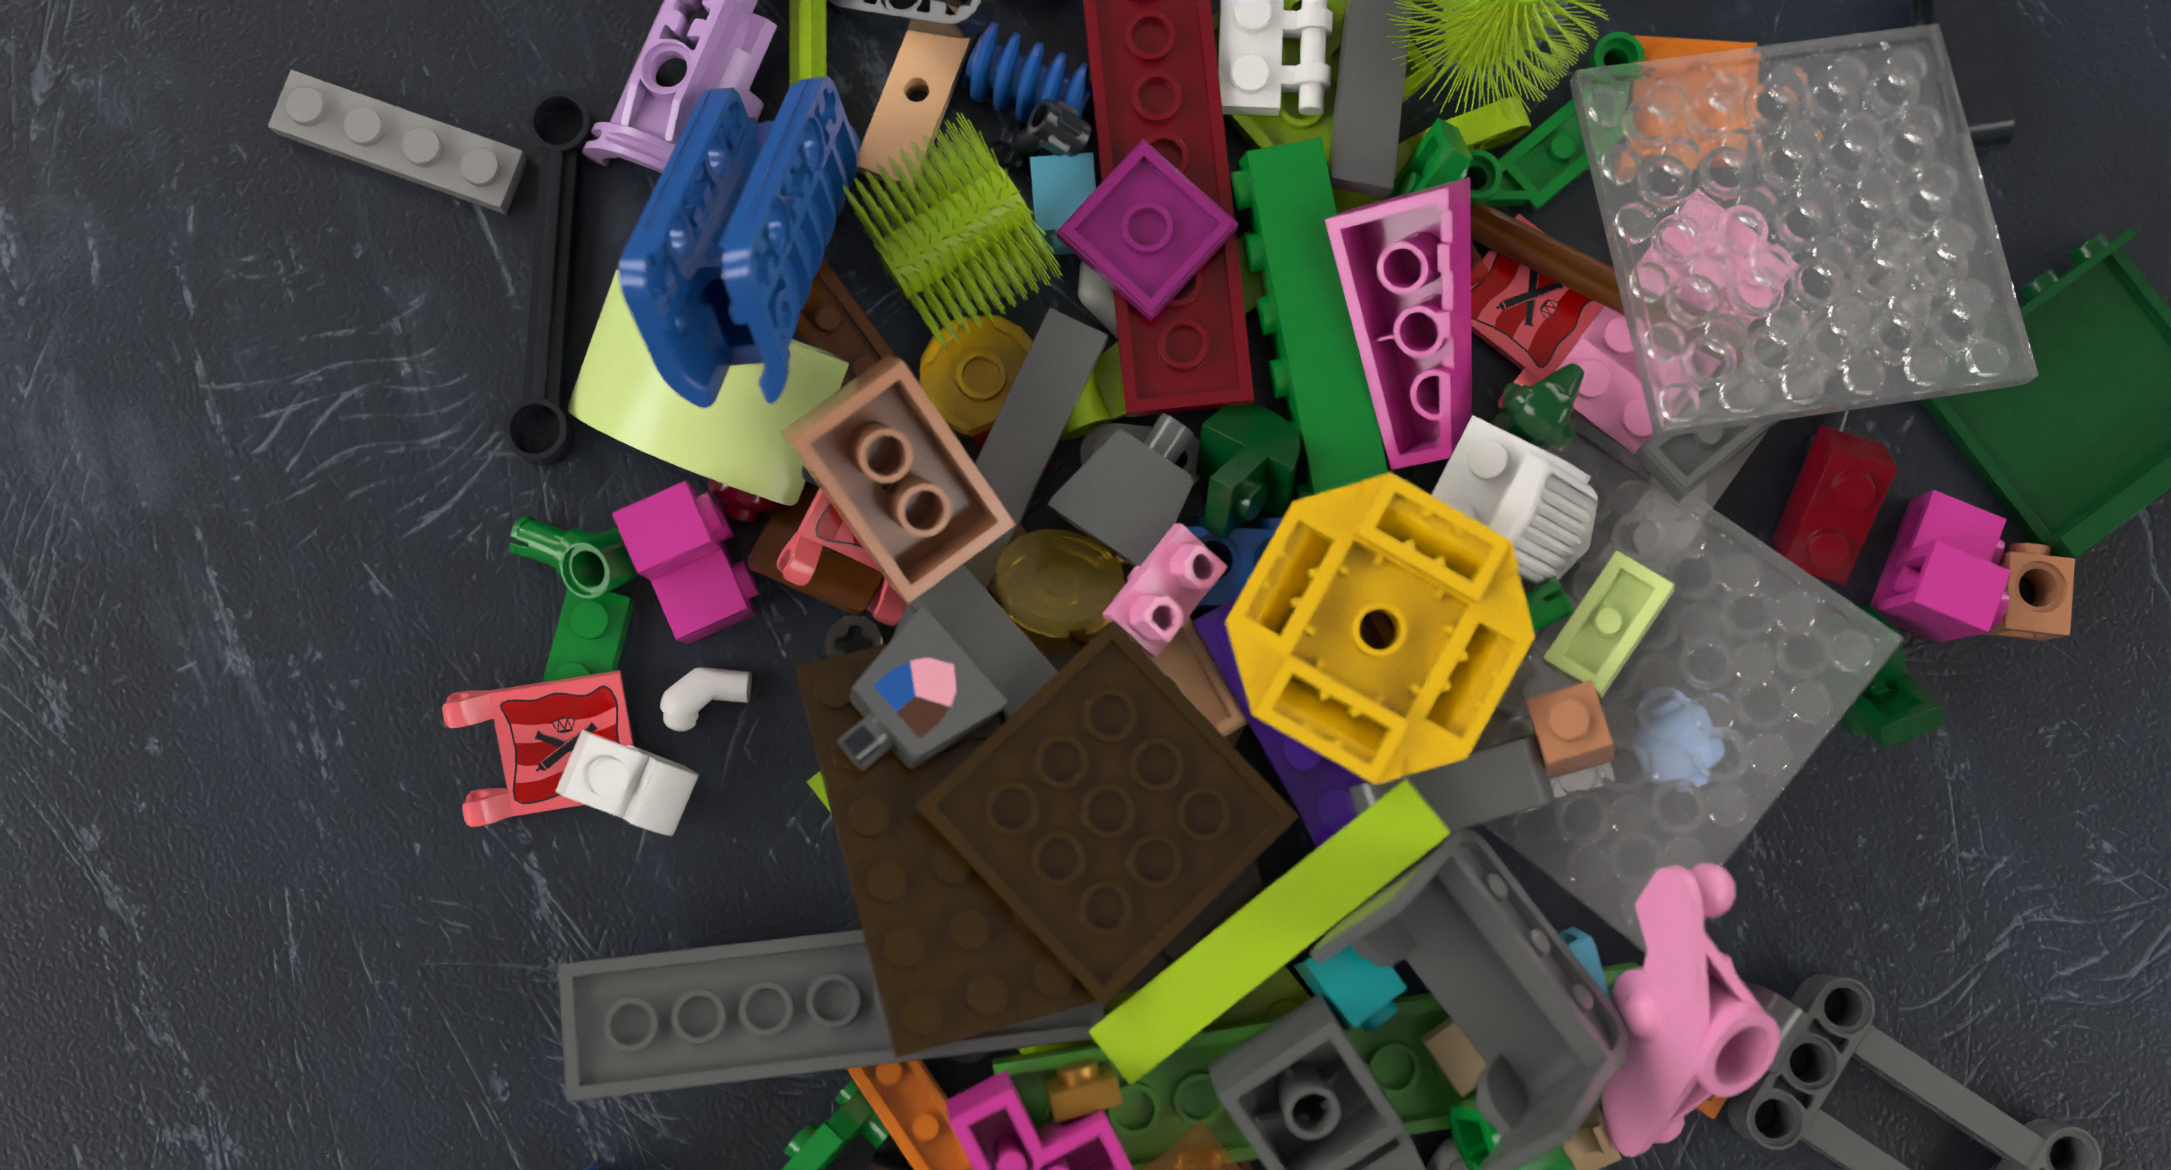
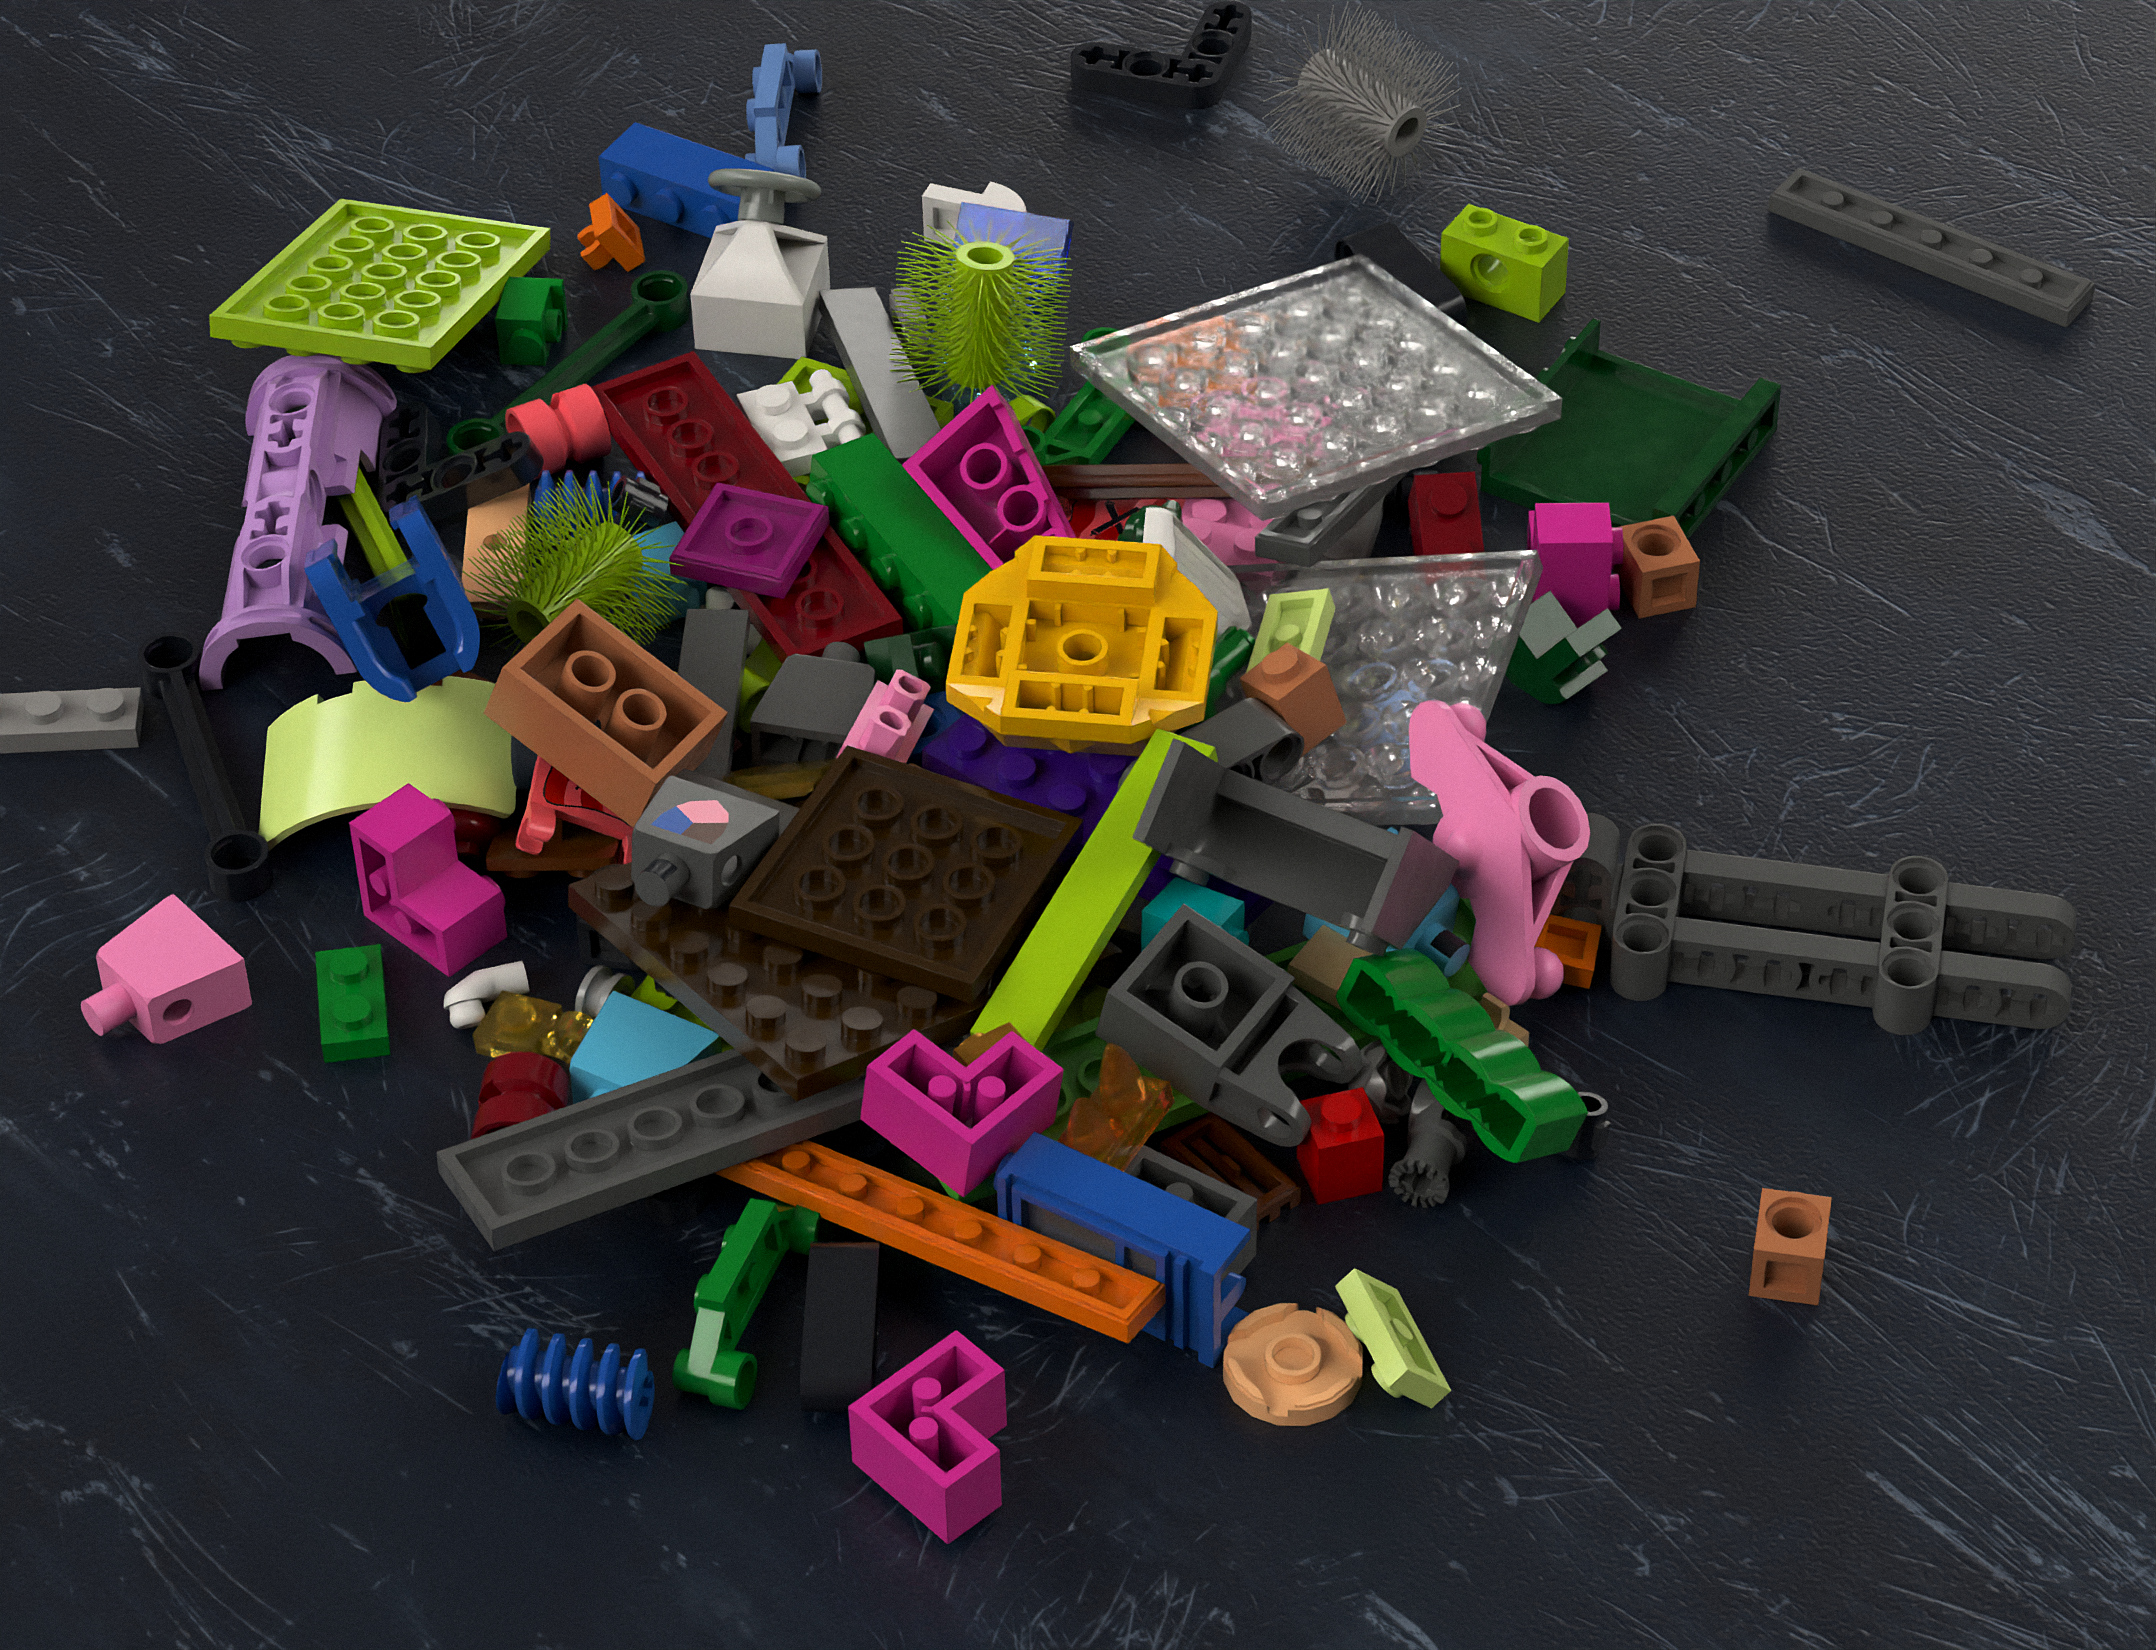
camera: 20 degrees left, 40 degrees down
(422, 561) = (167, 976): none -> bright pink torso
(536, 737) = (355, 1057): coral flag -> none
(576, 555) = (314, 923): green pin -> none
(627, 783) = (455, 1027): white brick -> none
(673, 889) = (519, 1089): none -> dark red wheel
(726, 756) = (530, 1025): none -> clear yellow plate
(790, 869) = (633, 1044): none -> medium azure torso
(799, 760) = (598, 986): none -> light grey bush
(2082, 82) = (1505, 262): none -> lime brick

